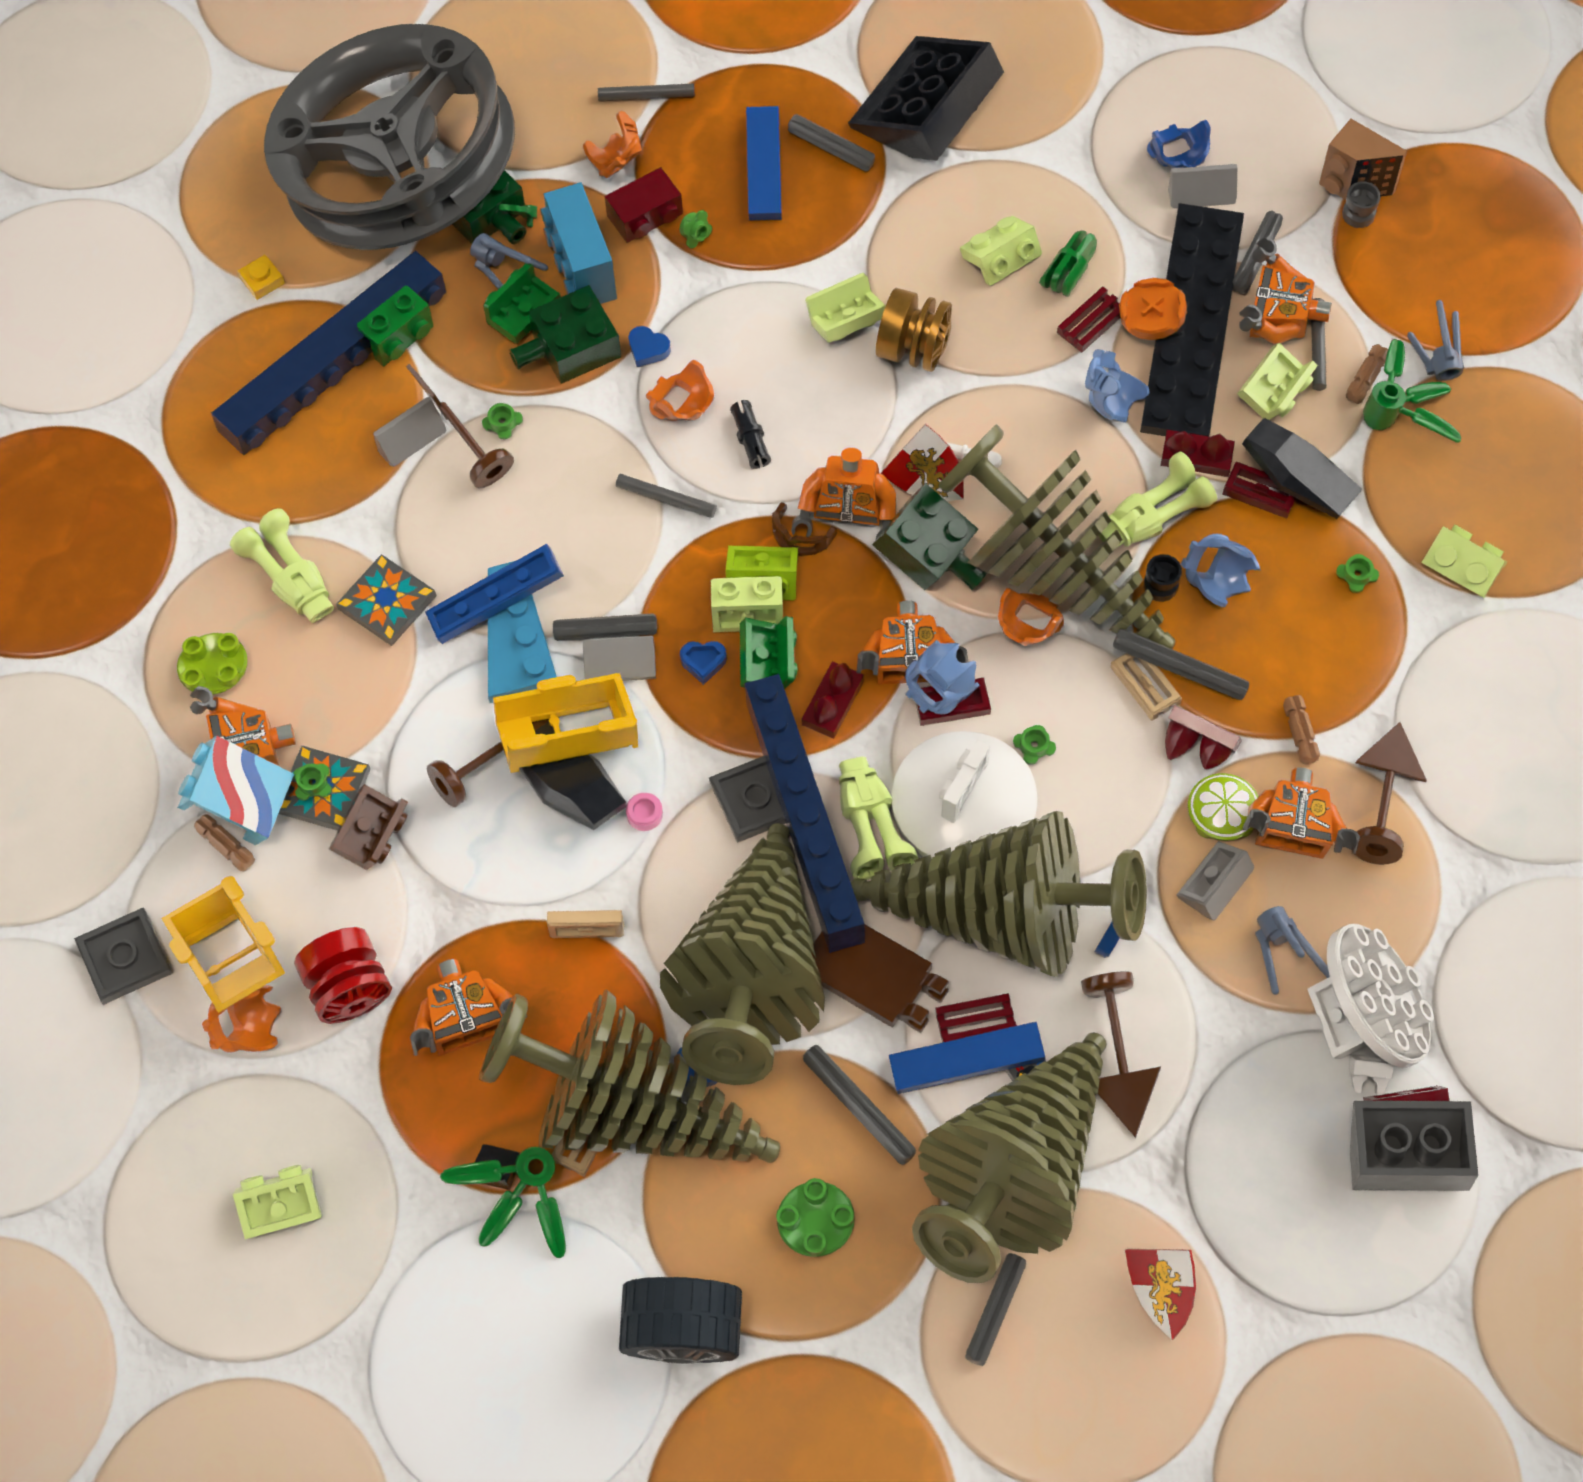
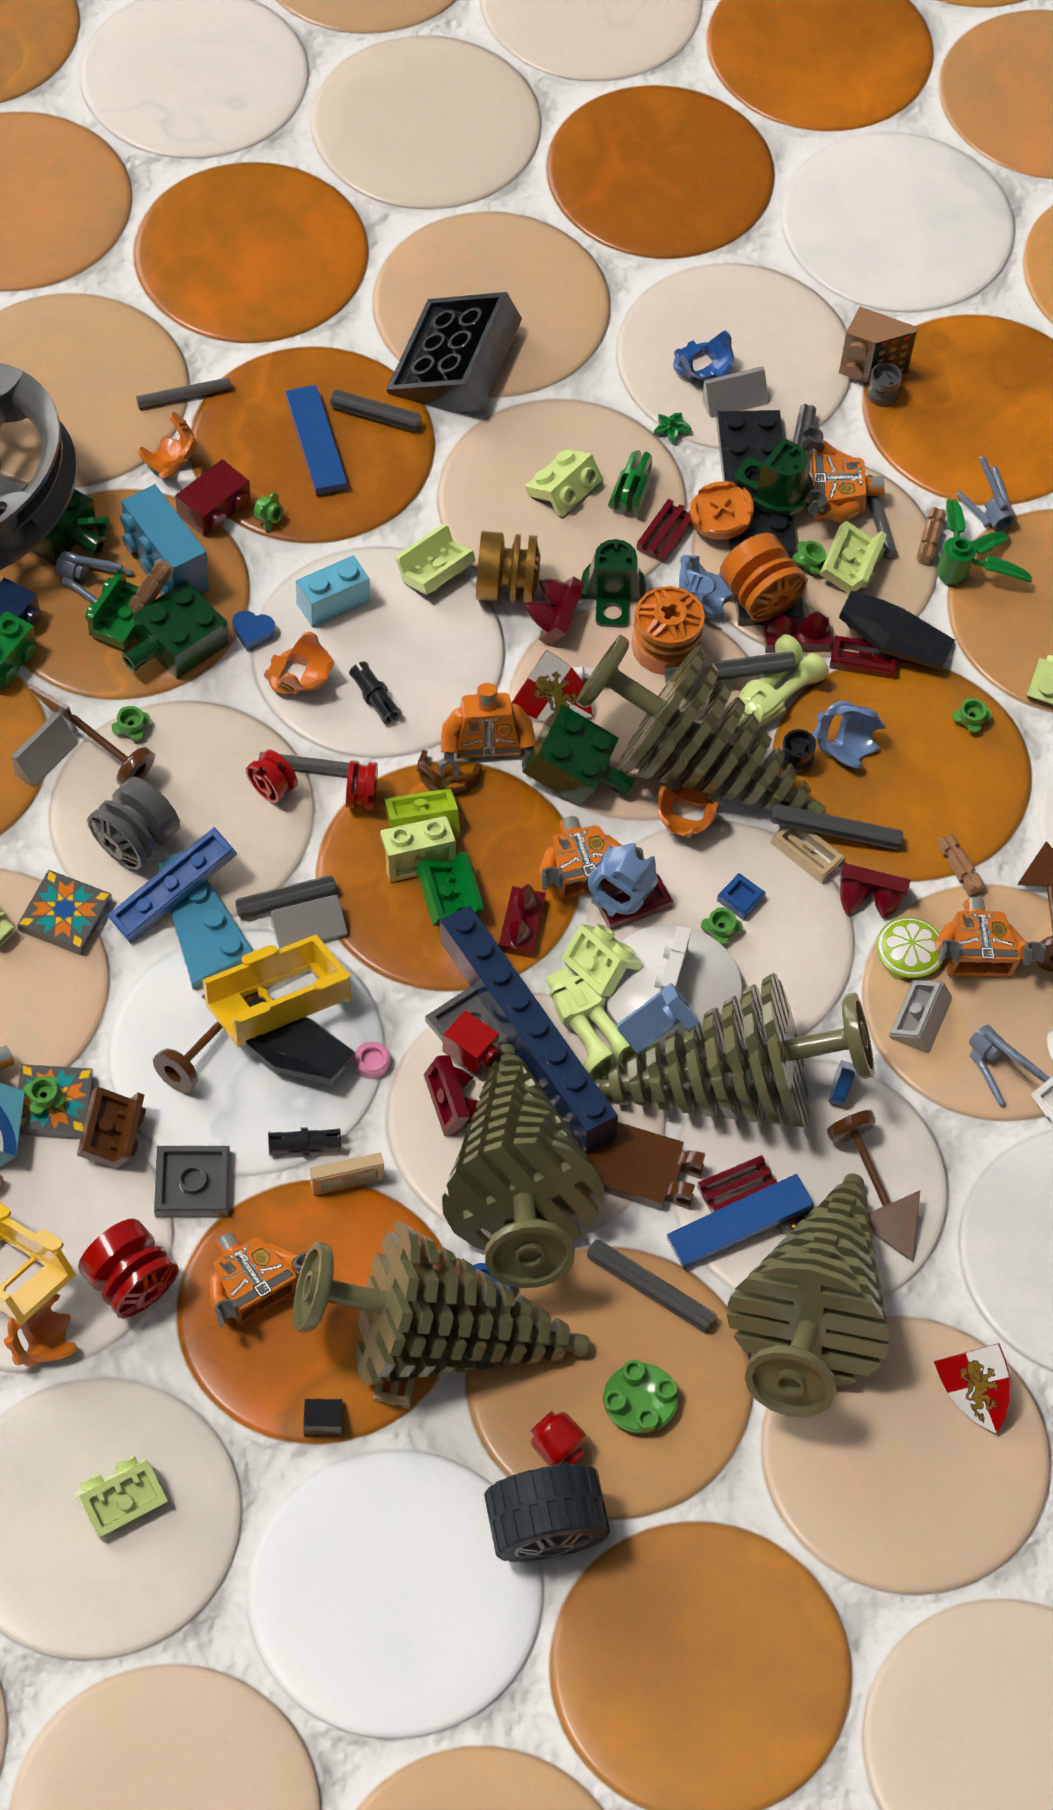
camera: 20 degrees left, 5 degrees down
(435, 898) = (192, 1181): none -> dark grey tile
(476, 521) = (133, 822): none -> dark grey wheel
(510, 1202) = (348, 1445): green plant -> none
(552, 285) = (151, 585): none -> medium nougat axle
(554, 881) = (304, 1141): none -> black pin
(622, 501) = (271, 777): none -> red wheel
(703, 660) = (388, 909): blue tile -> none
(708, 527) = (365, 786): none -> red wheel
(708, 852) = (445, 1088): none -> dark red tile
(719, 1244) = (558, 1439): none -> red head
(735, 321) = (332, 590): none -> medium azure piece
(743, 815) = (471, 1042): none -> red brick
(897, 754) = (599, 958): none -> yellowish green bracket
(931, 830) = (656, 1018): none -> medium blue bracket
(951, 391) = (557, 616): none -> dark red tile
(995, 1309) = (830, 1446): dark grey axle -> none
(1022, 363) = (613, 581): none -> dark green container
(1061, 420) = (666, 628): none -> orange wheel
(1063, 717) = (741, 896): none -> blue tile
(1126, 477) = (748, 666): none -> dark grey axle
(1129, 211) = (672, 426): none -> green plant
(1171, 387) = (763, 577): none -> orange wheel
(1220, 289) = (782, 480): none -> dark green container
(1233, 373) = (810, 556): none -> bright green plate

